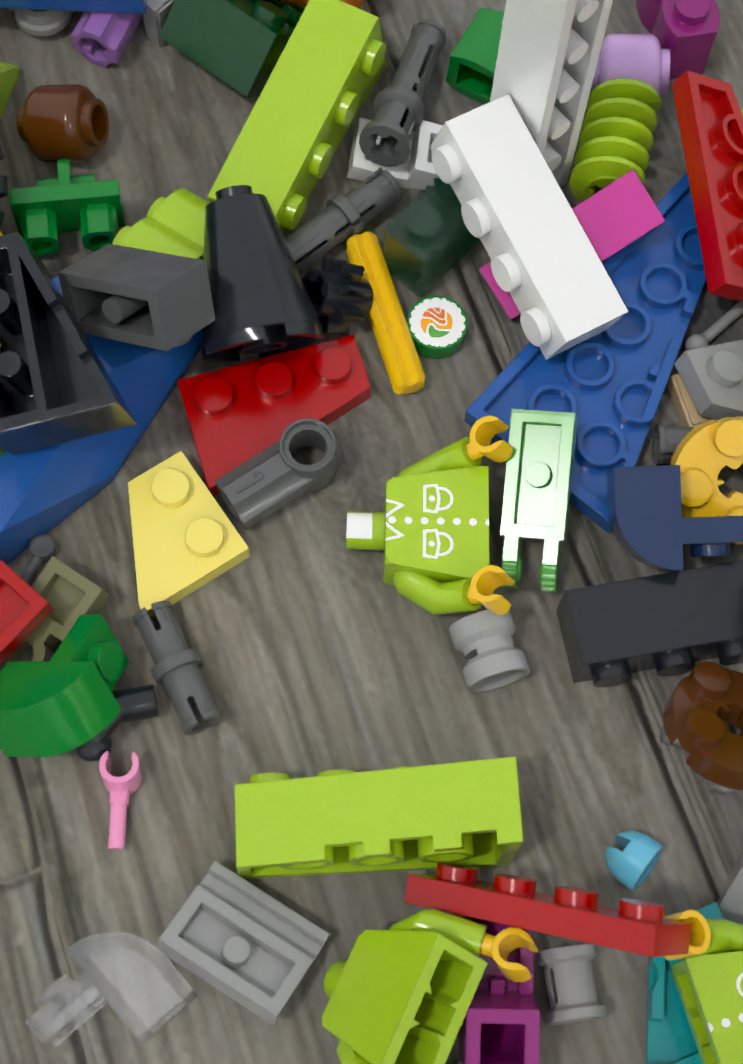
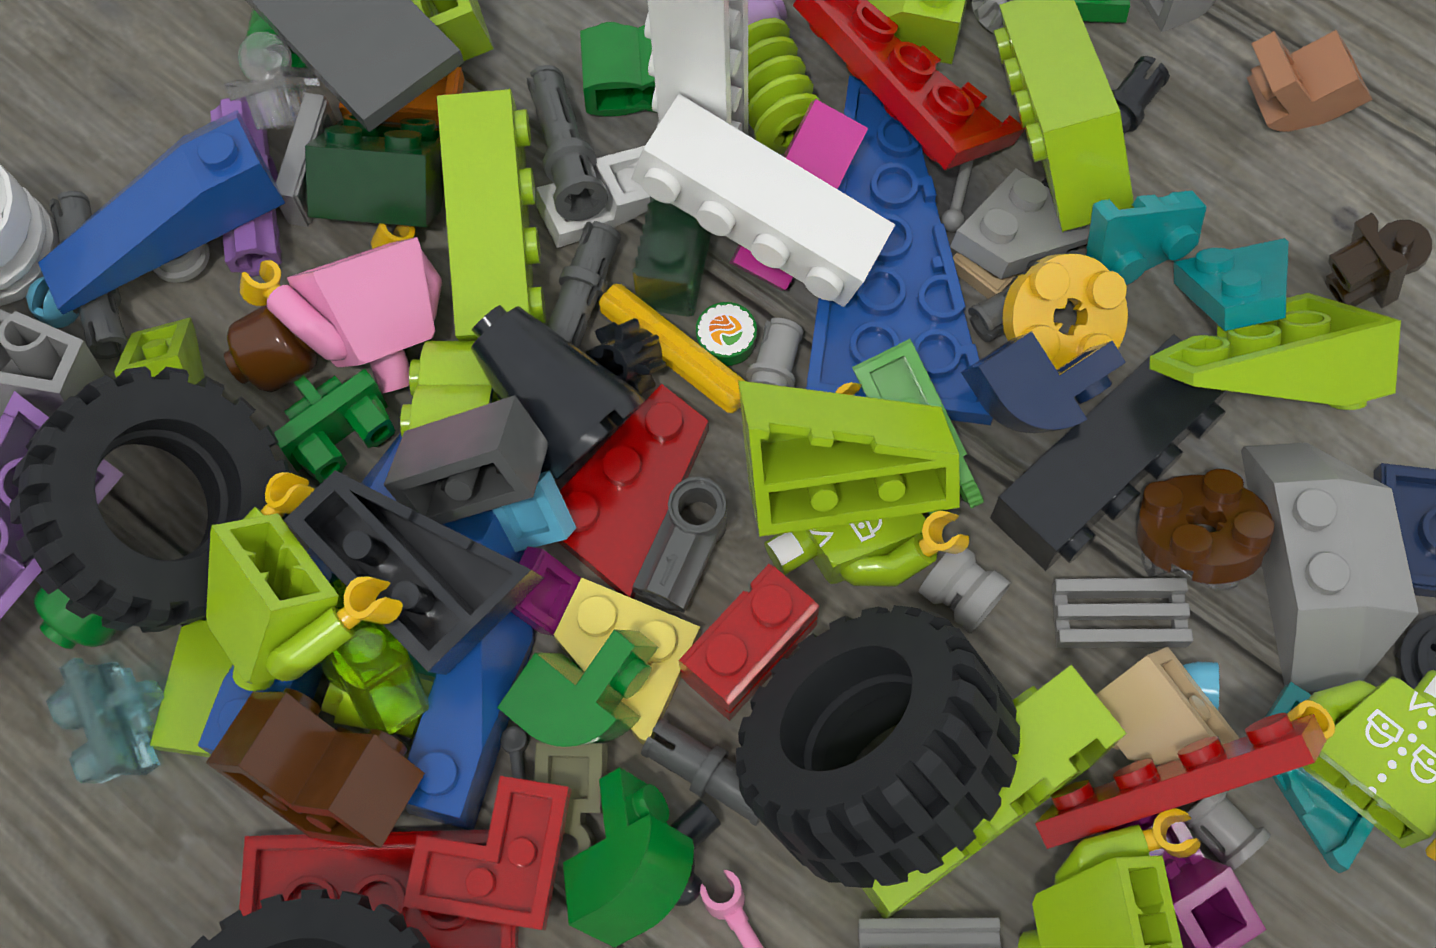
camera: 25 degrees left, 0 degrees up
(109, 547) = (576, 707): none -> green brick
(141, 445) = (549, 599): none -> magenta tile
(149, 127) = (359, 305): none -> bright pink torso
(173, 375) = (537, 519): none -> medium azure plate
(278, 583) = (749, 641): none -> red brick
(310, 723) = (913, 791): none -> black tyre
(441, 470) = (843, 458): none -> lime wedge
(450, 380) = (776, 353): none -> light grey pin
(579, 845) = (1161, 709): none -> tan slope
(626, 736) = (1105, 588): none -> light grey tile

